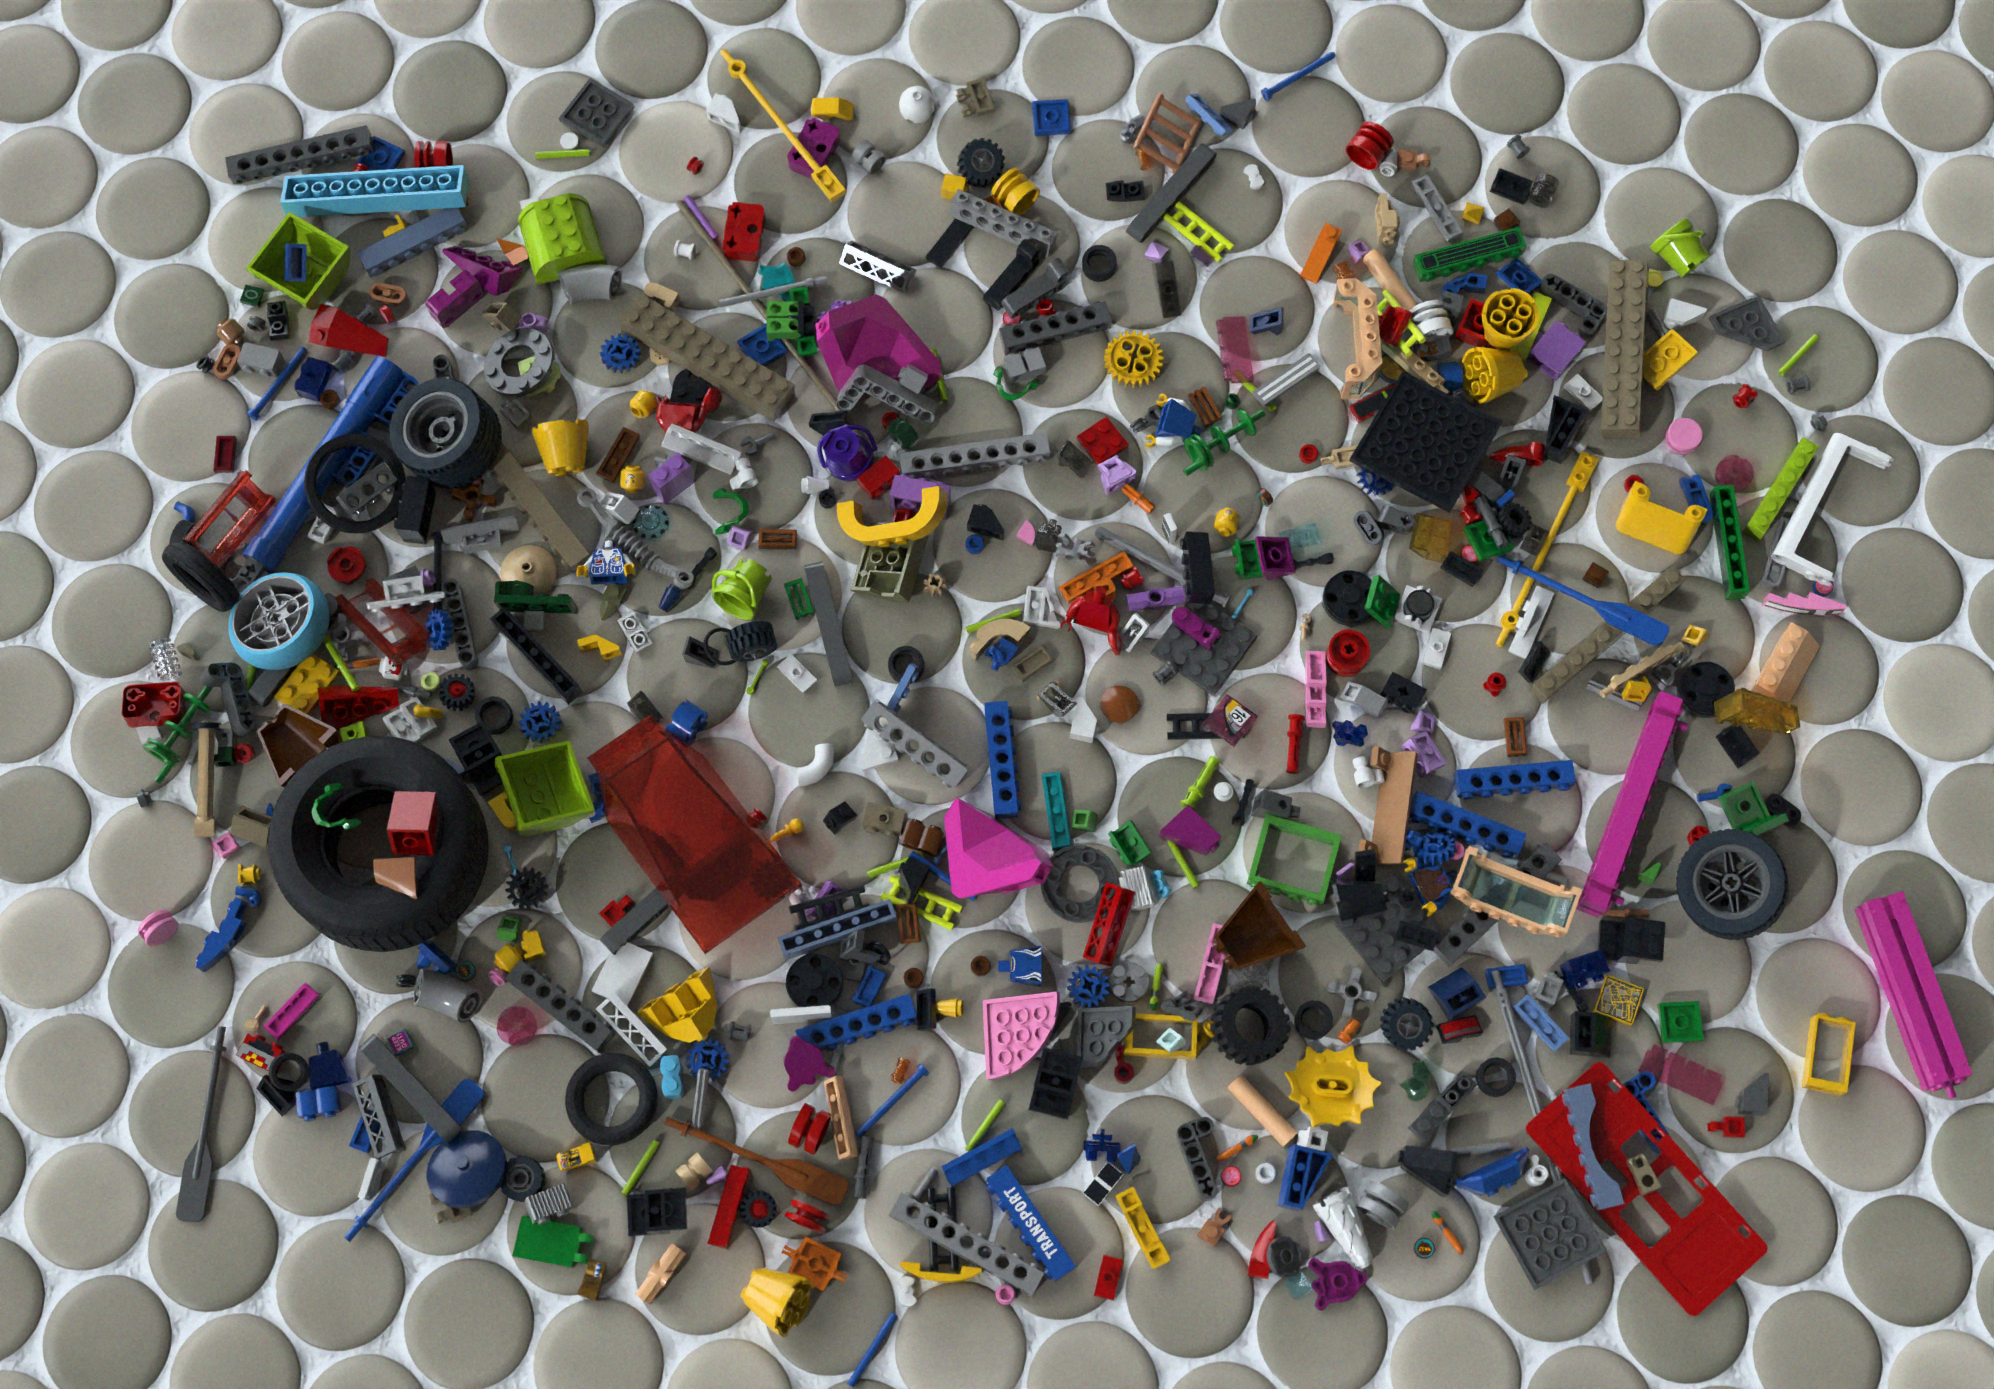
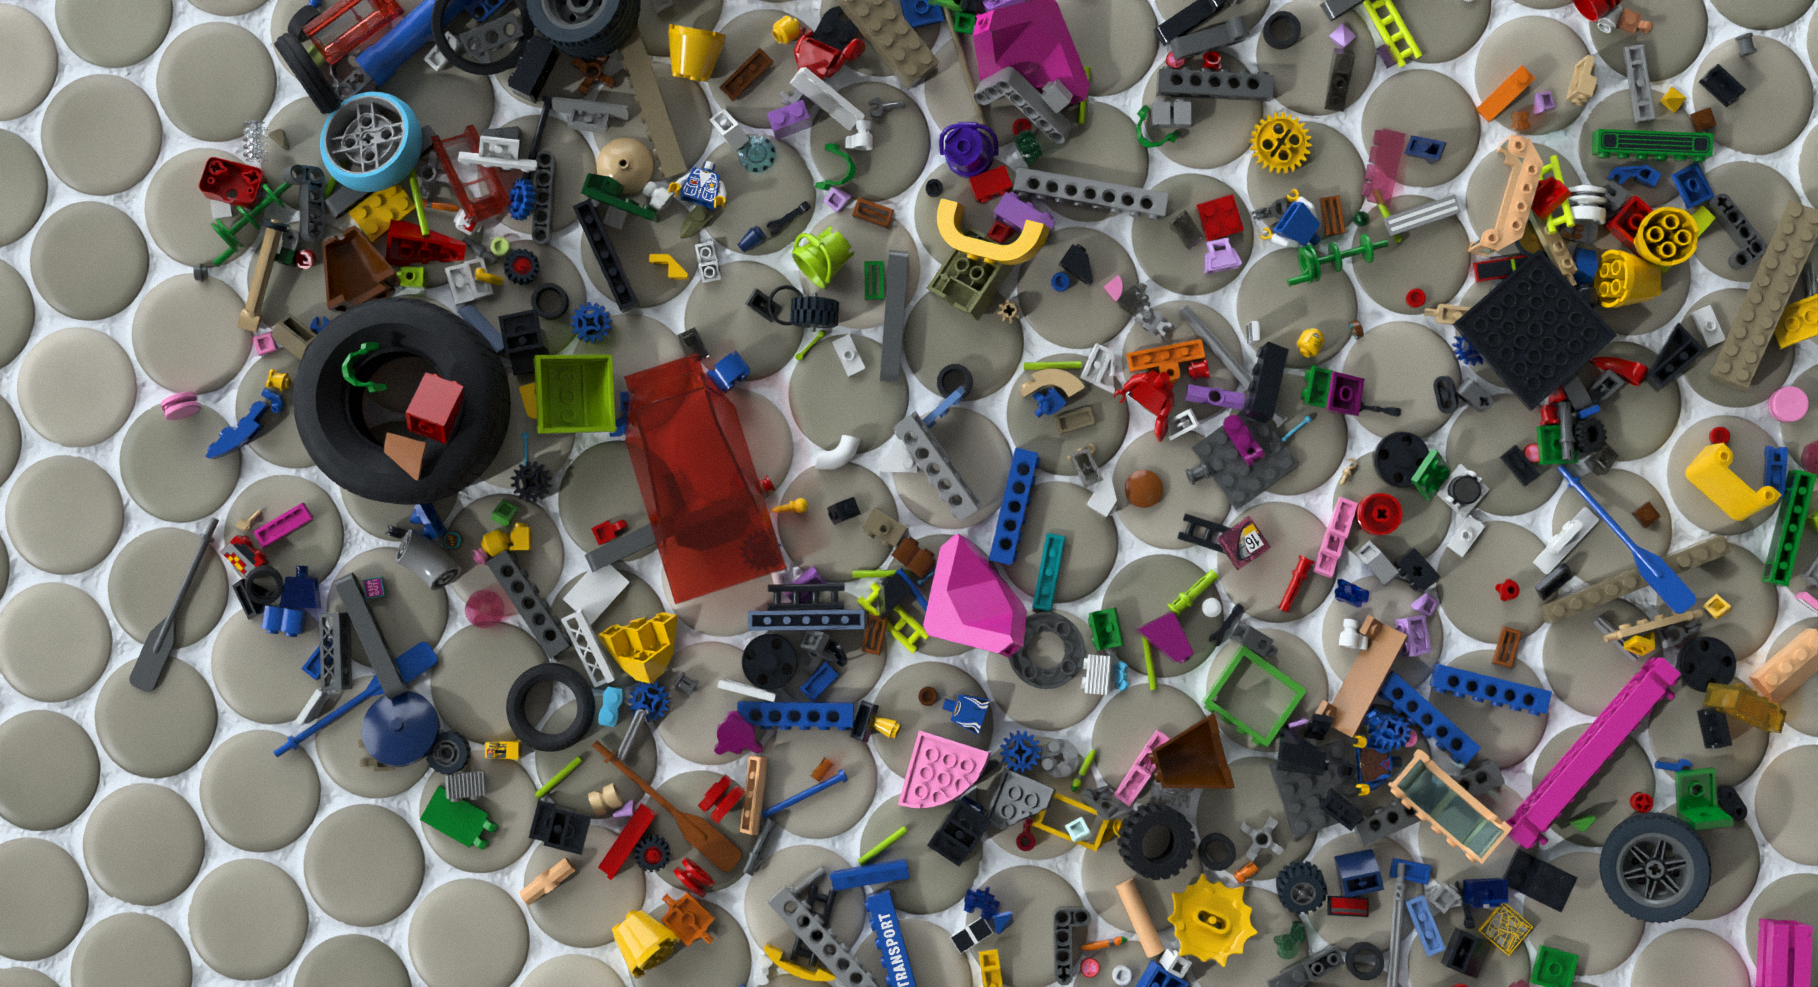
camera: 20 degrees right, 15 degrees up
(348, 575) = (454, 90): red plate -> none
(428, 578) = (526, 142): lavender plate -> none
(572, 586) = (660, 197): none -> white piece
(593, 1280) = (484, 866): pearl gold leg -> none
(632, 478) = (752, 105): yellow head -> none
(641, 552) = (718, 150): light grey piece -> none
(813, 484) = (925, 170): white cone -> none
(827, 421) = (960, 109): black slope -> none
(913, 978) = (862, 686): reddish brown tile -> none
(1084, 820) = (1071, 590): bright green slope -> none
(1112, 925) = (1061, 704): red fence -> none
(1138, 498) = (1234, 290): orange axle -> none
(1303, 529) = (1392, 379): clear light blue slope -> none
(1388, 279) = (1562, 145): light nougat brick -> none
(1431, 537) = (1502, 425): clear yellow slope -> none
(1543, 190) = (1754, 99): clear smoke wheel -> none
(1556, 350) = (1699, 274): medium lavender brick -> none
(1577, 481) = (1666, 414): yellow bar -> none
(1627, 913) = (1545, 850): nougat piece -> none

